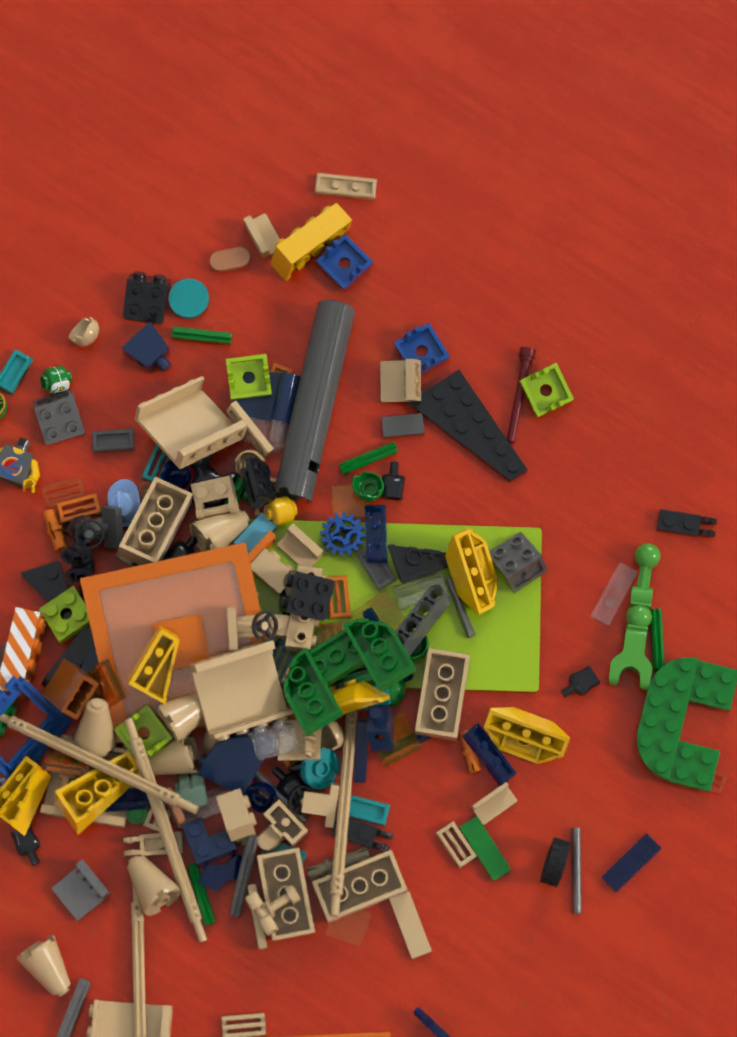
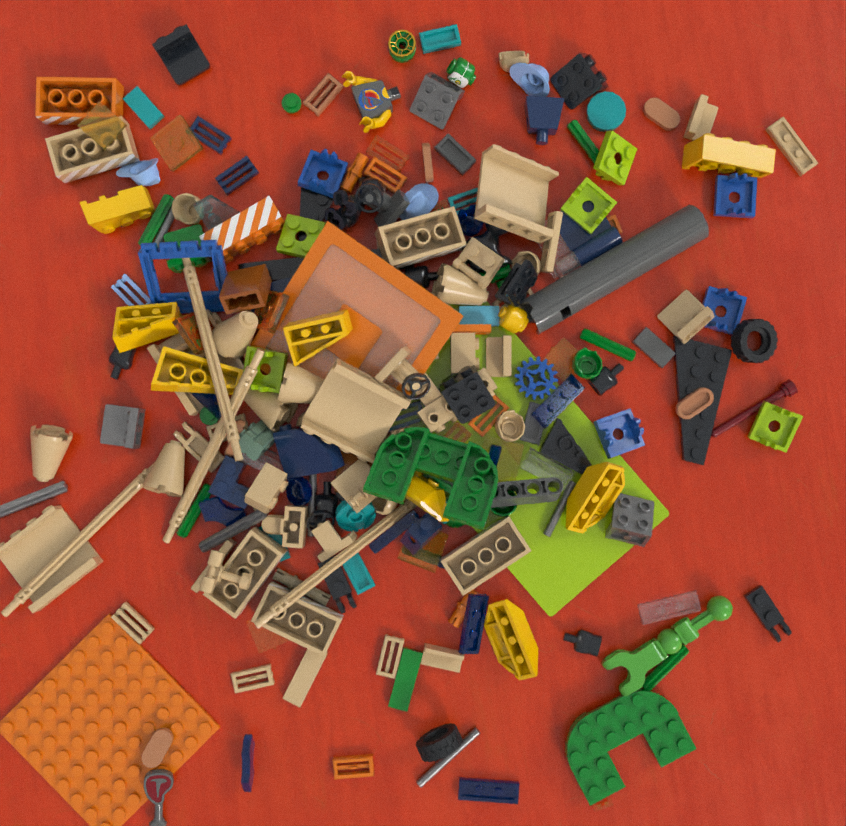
camera: 50 degrees right, 10 degrees up
(25, 545) = (325, 162): none -> blue piece
(100, 467) = (427, 160): none -> nougat tile
(112, 331) = (531, 78): none -> light blue piece
(229, 335) = (606, 163): none -> lime piece
(274, 740) = (340, 468): clear bracket -> none
(361, 587) = (510, 426): none -> tan hair
(366, 985) = (269, 674): none -> tan tile
(445, 498) = (628, 425): none -> piece
(472, 433) = (694, 403): none -> nougat tile
(474, 334) = (768, 340): none -> black tyre
(506, 967) = (355, 758): none -> orange tile

